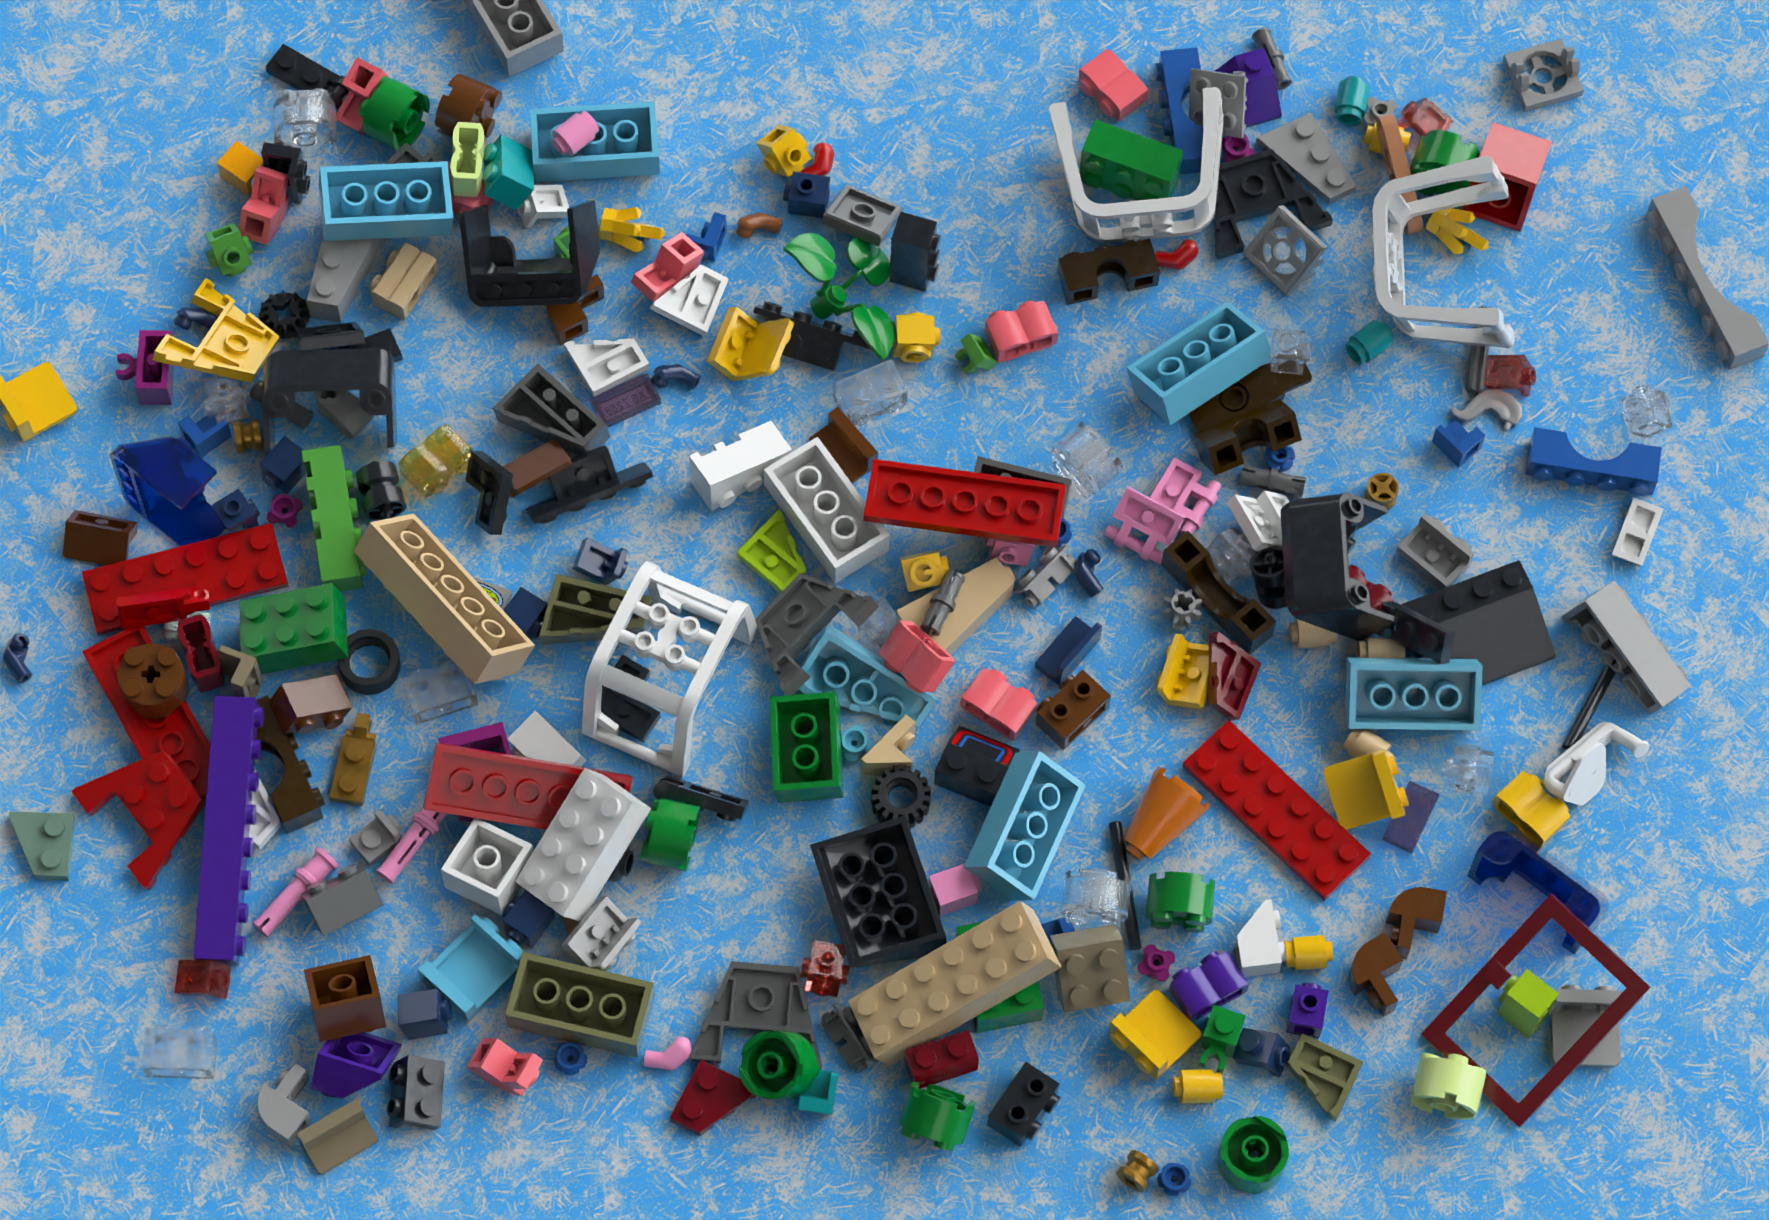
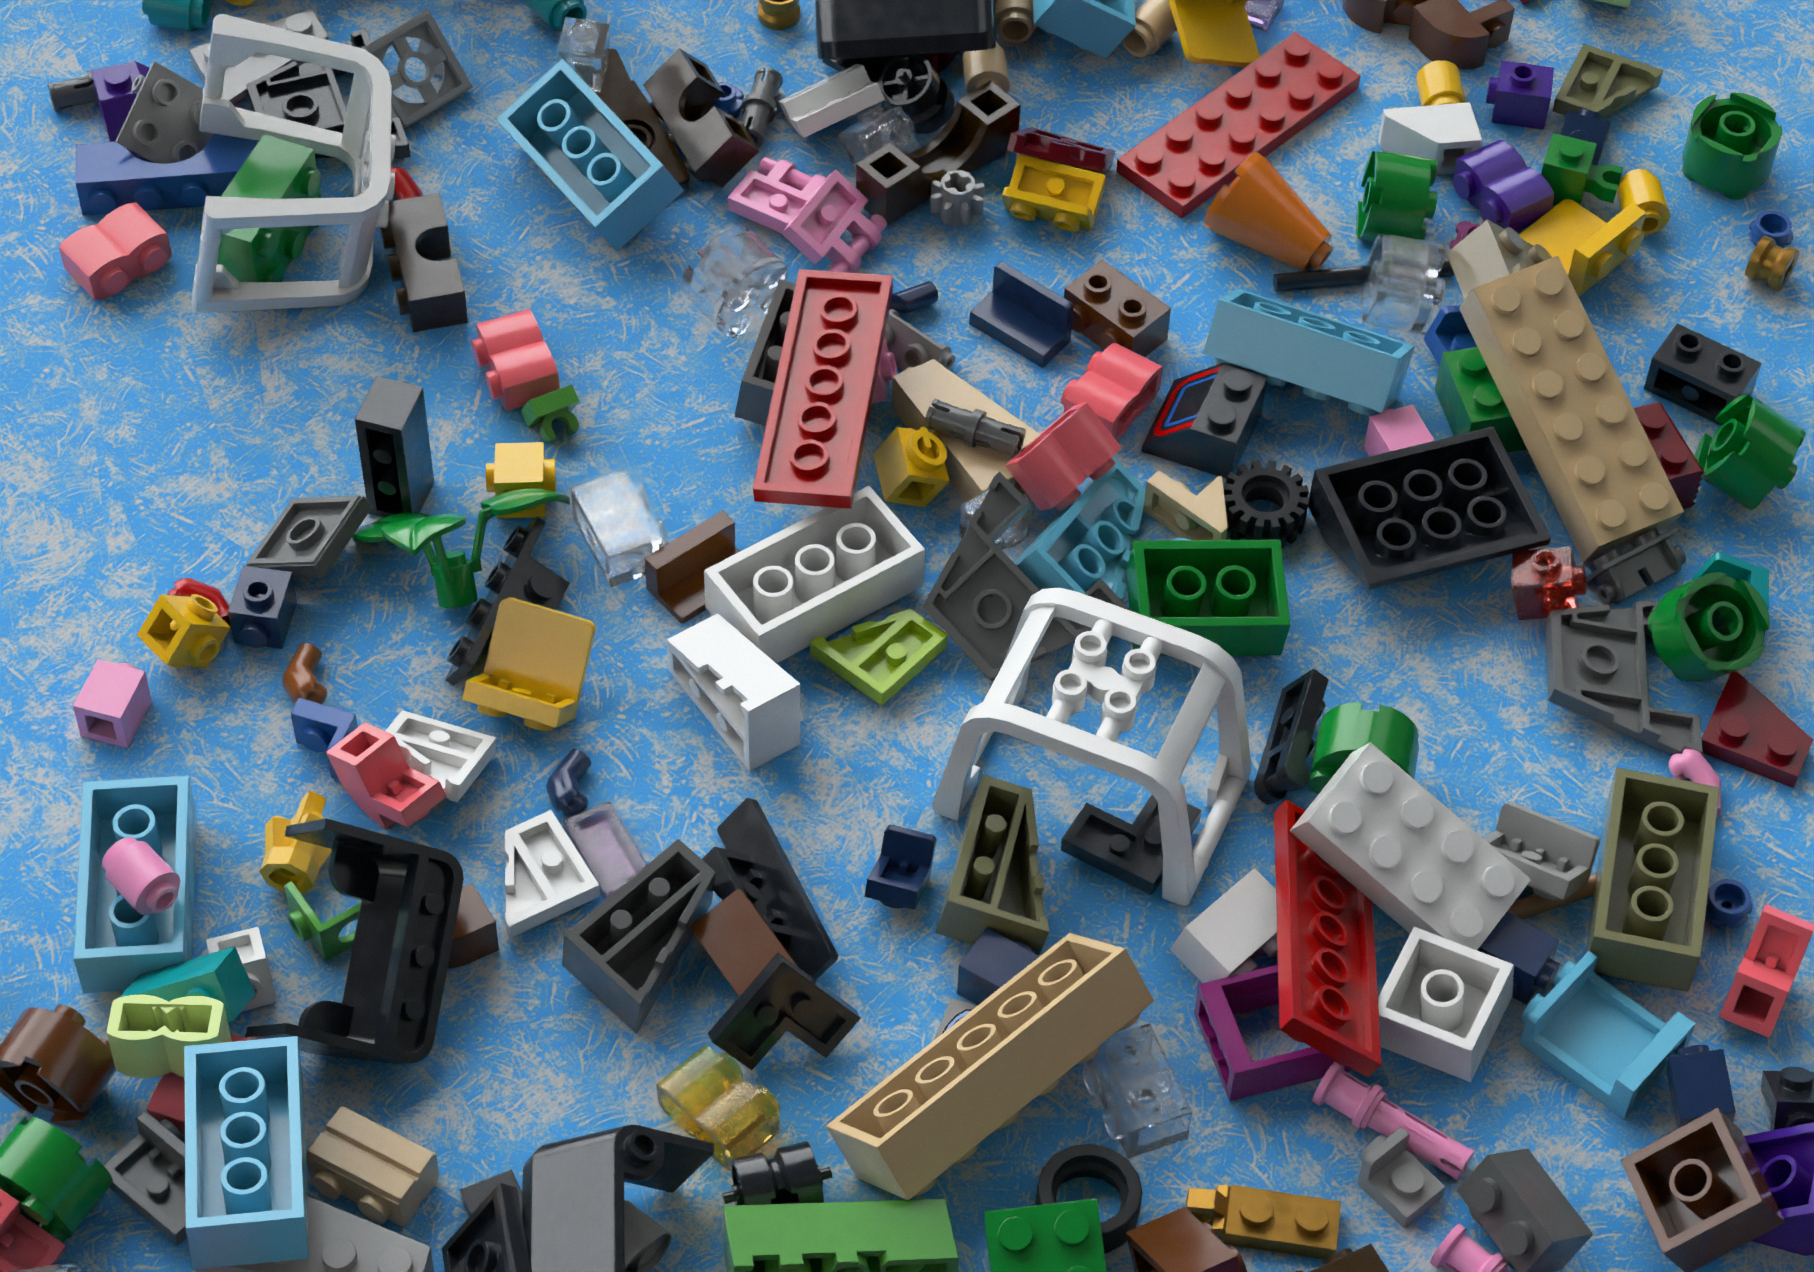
camera: 90 degrees left, 15 degrees down
(735, 119) = (112, 703): none -> bright pink brick

